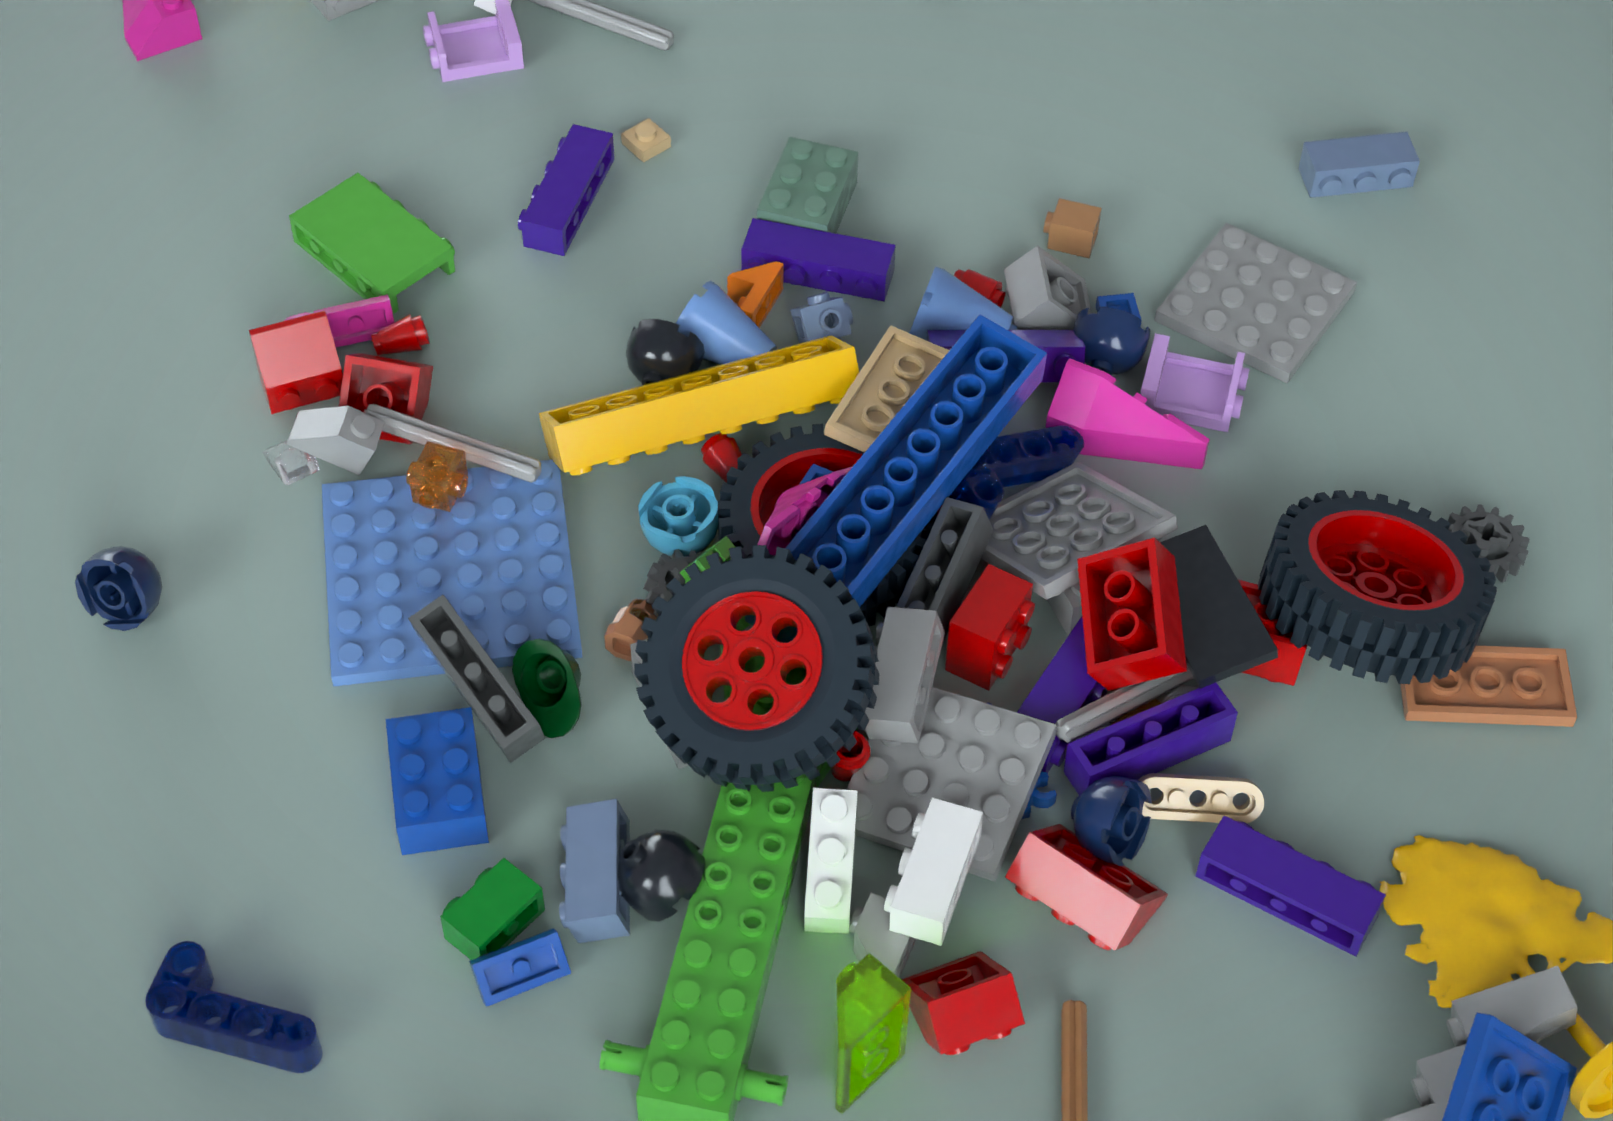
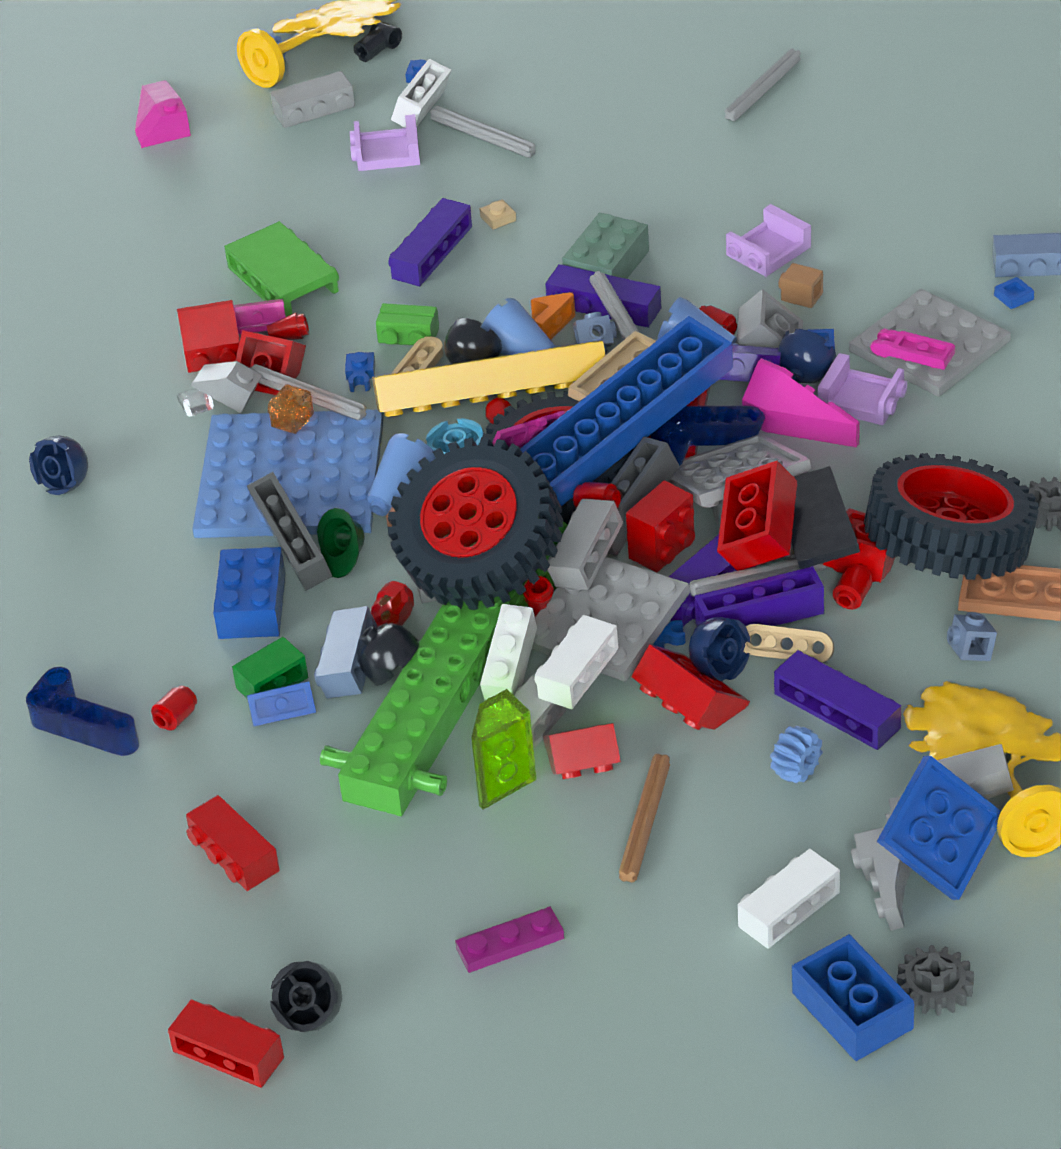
camera: 15 degrees right, 10 degrees down
(364, 988) = (174, 707): none -> red brick
(512, 394) = (360, 369): none -> blue plate
(564, 322) = (406, 323): none -> bright green brick
(592, 374) = (422, 355): none -> tan plate
(611, 567) = (395, 464): none -> medium blue cone
(642, 784) = (393, 604): none -> red rock
(847, 286) = (613, 304): none -> light grey axle
(902, 594) = (596, 491): none -> red brick
(1015, 163) = (770, 243): none -> lavender panel
(1247, 319) = (913, 348): none -> dark pink hinge
(1262, 698) = (853, 587): none -> red brick
(1263, 988) = (796, 754): none -> medium blue gear
(1345, 222) = (1014, 293): none -> blue plate
(1444, 770) = (972, 637): none -> sand blue brick

